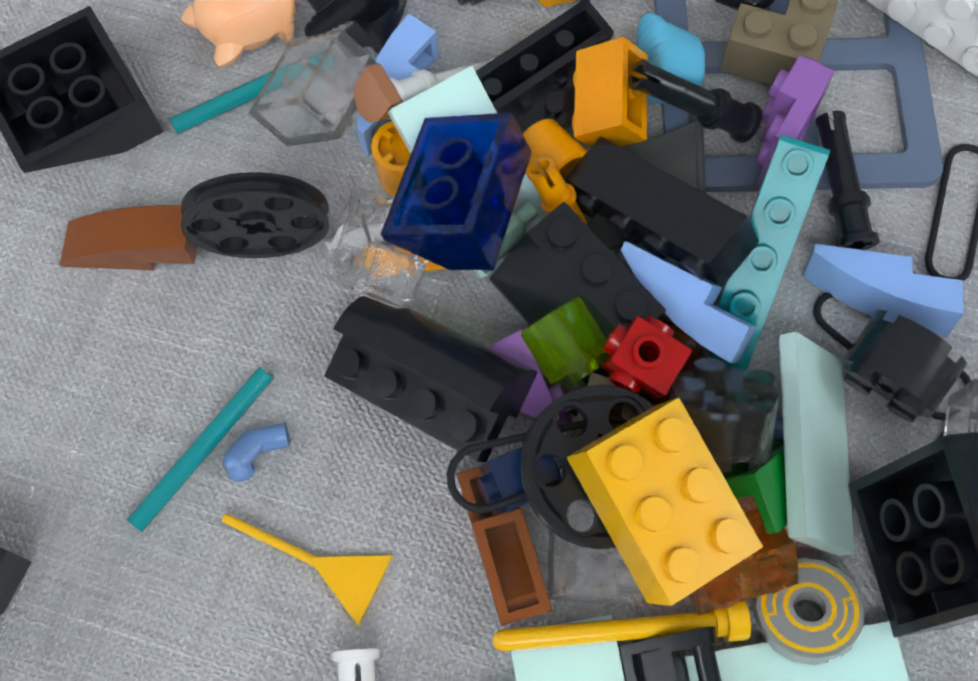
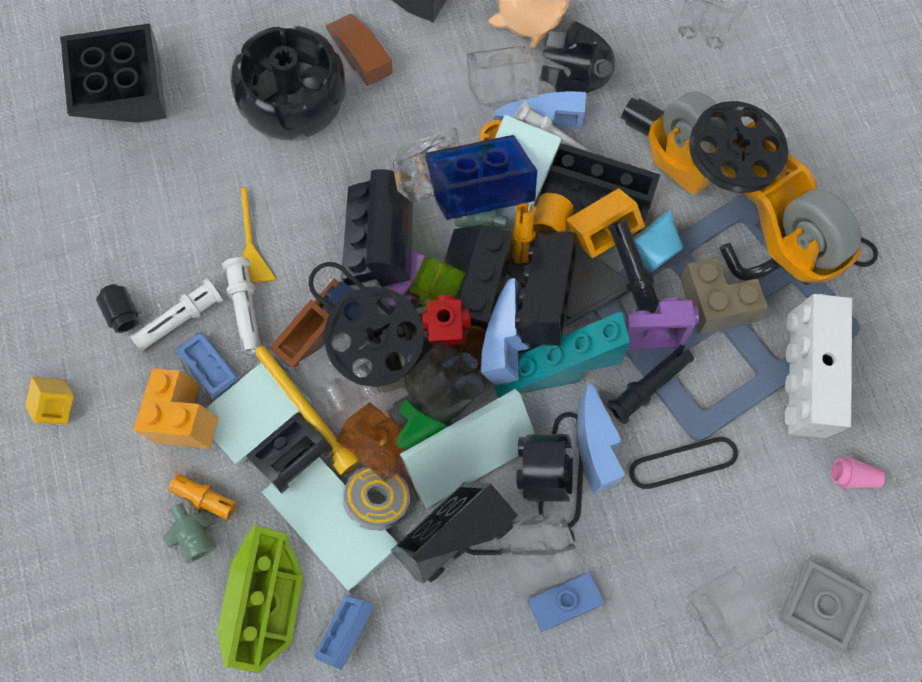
camera: 50 degrees right, 0 degrees up
(78, 331) = (280, 52): none -> black wheel
(199, 449) = (272, 154): teal bar -> none
(218, 105) = (470, 39): teal bar -> none
(246, 220) = (403, 93): black wedge -> none
(249, 445) = (287, 175): medium blue arm -> none
(375, 94) = (515, 103): nougat tile -> none
(385, 615) = (241, 292): none -> white pin
(665, 503) = (368, 371): yellow brick -> none

